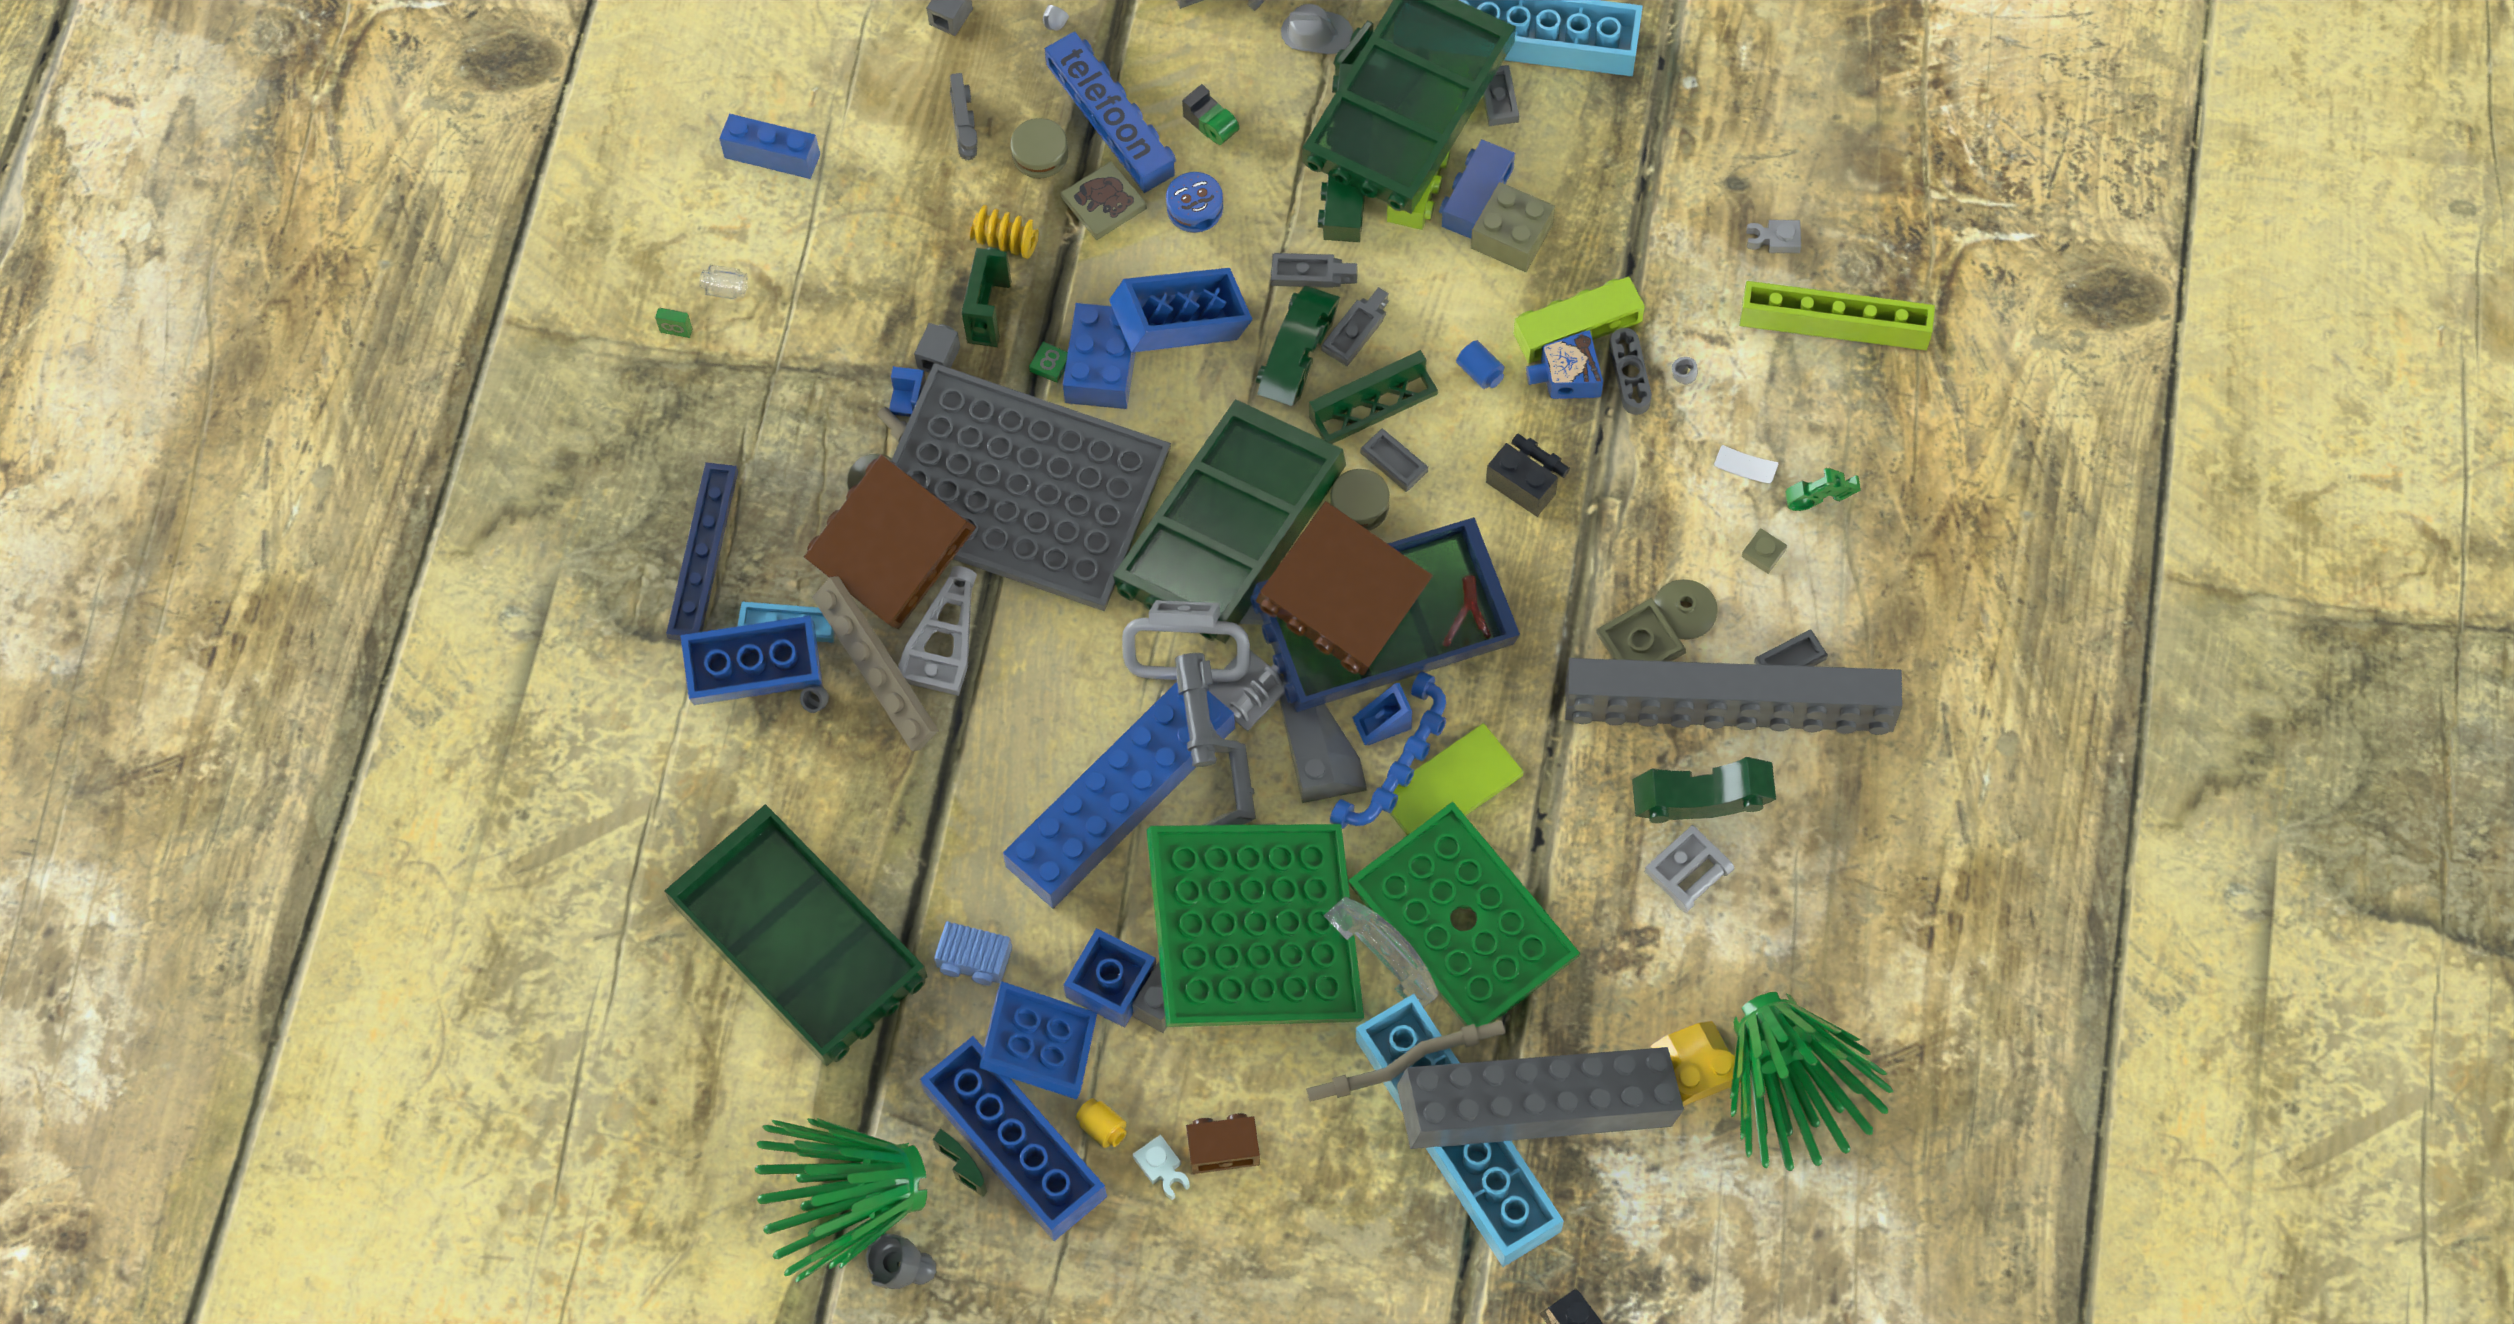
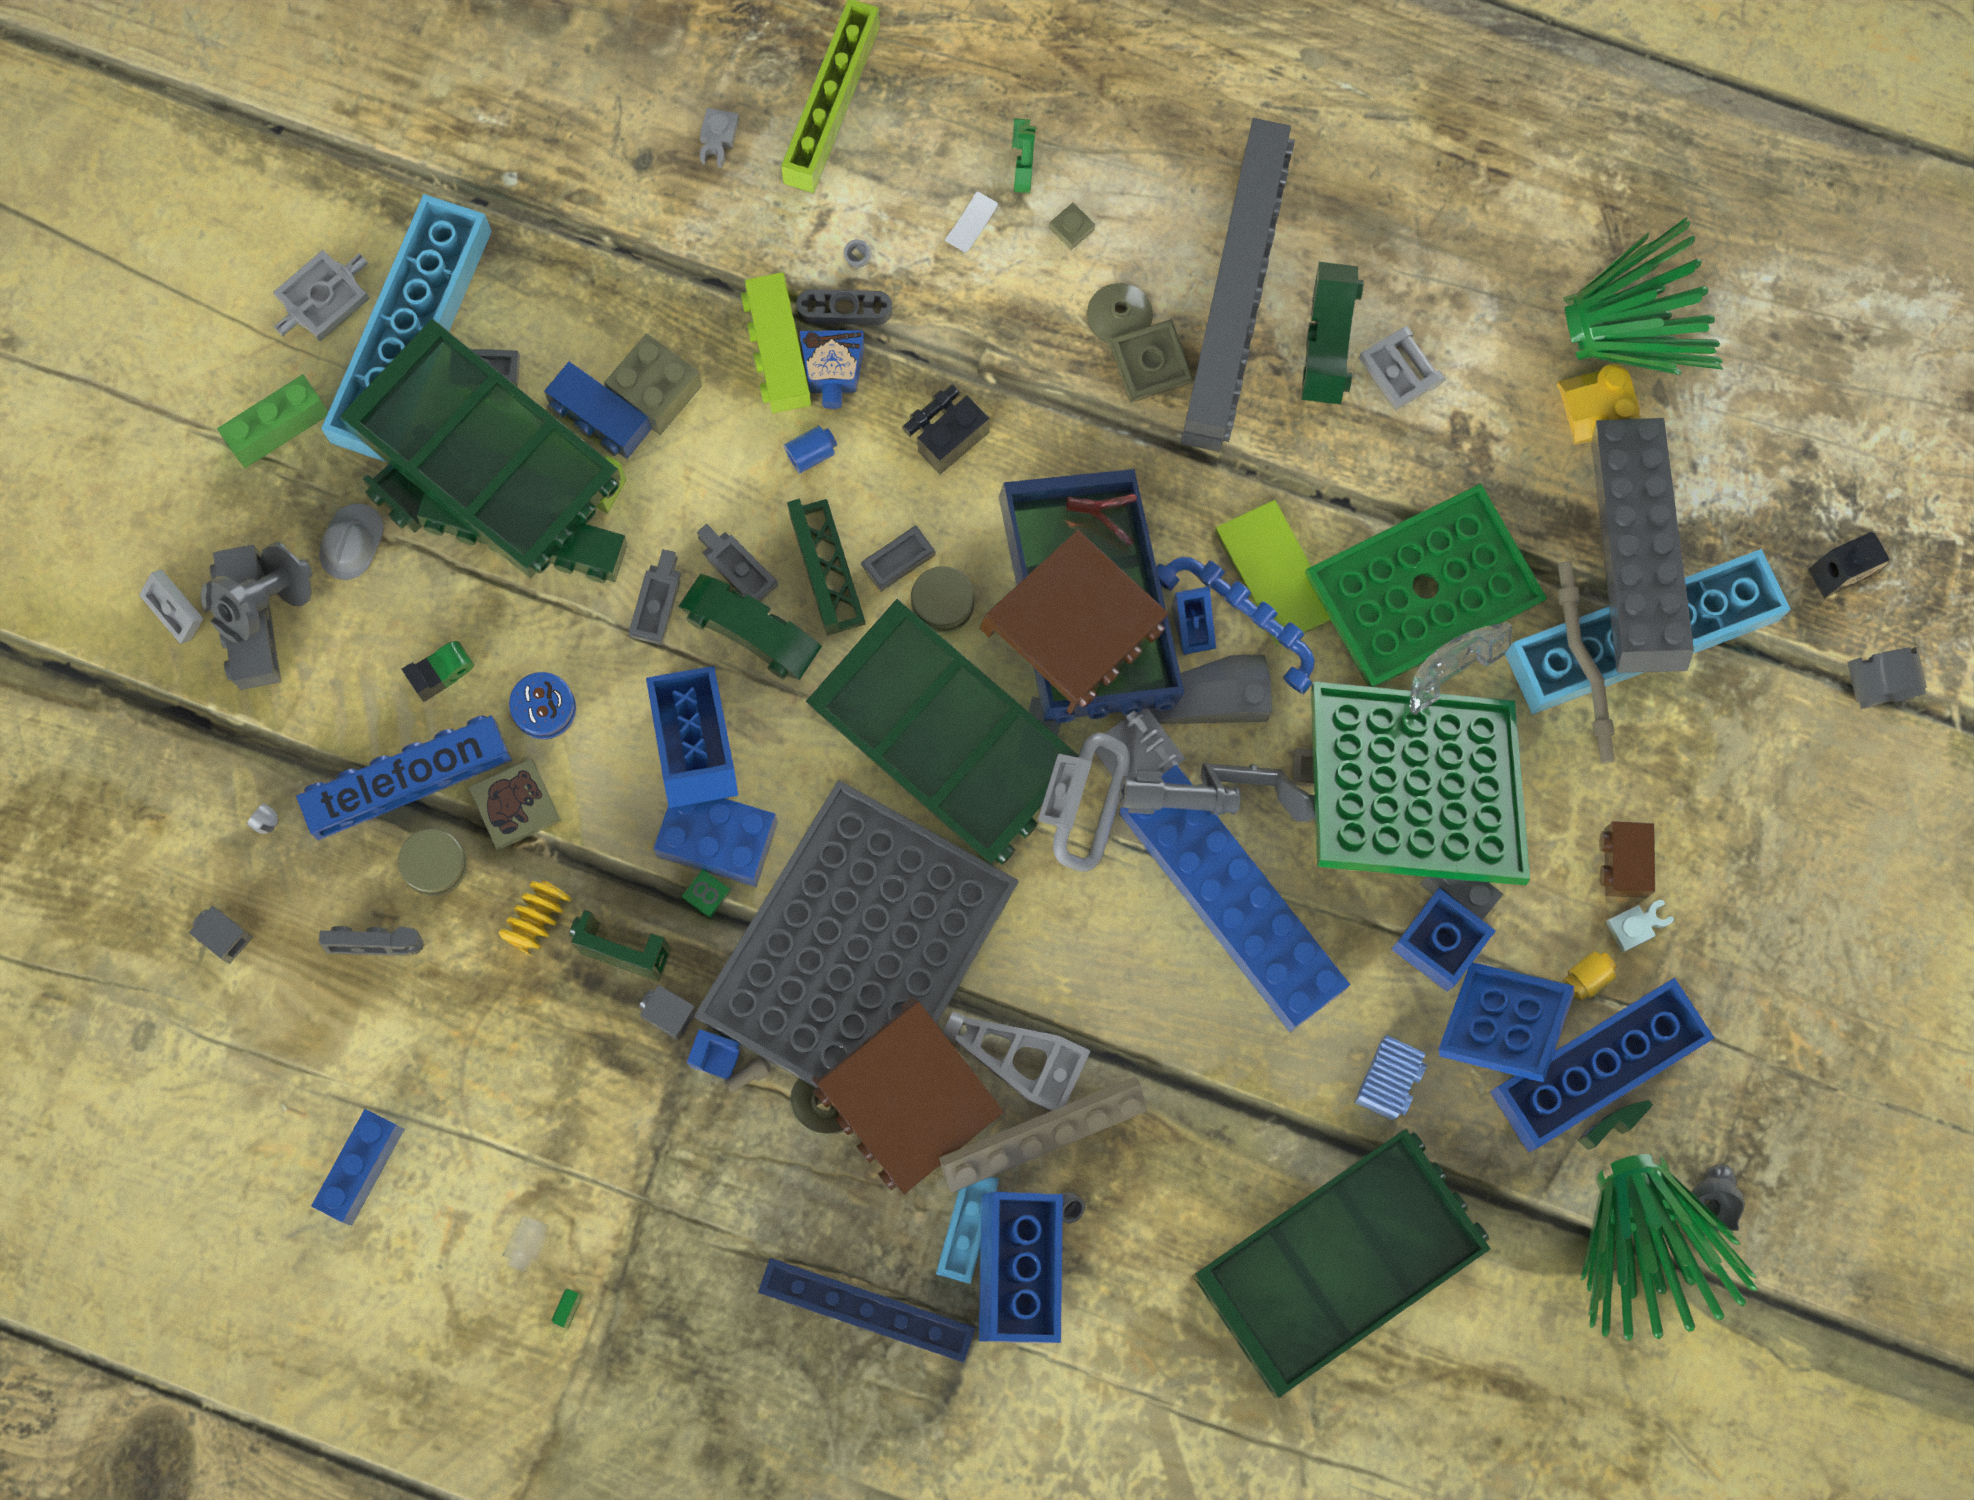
camera: 85 degrees left, 10 degrees up
(1798, 651) = (1192, 228): dark grey tile -> none

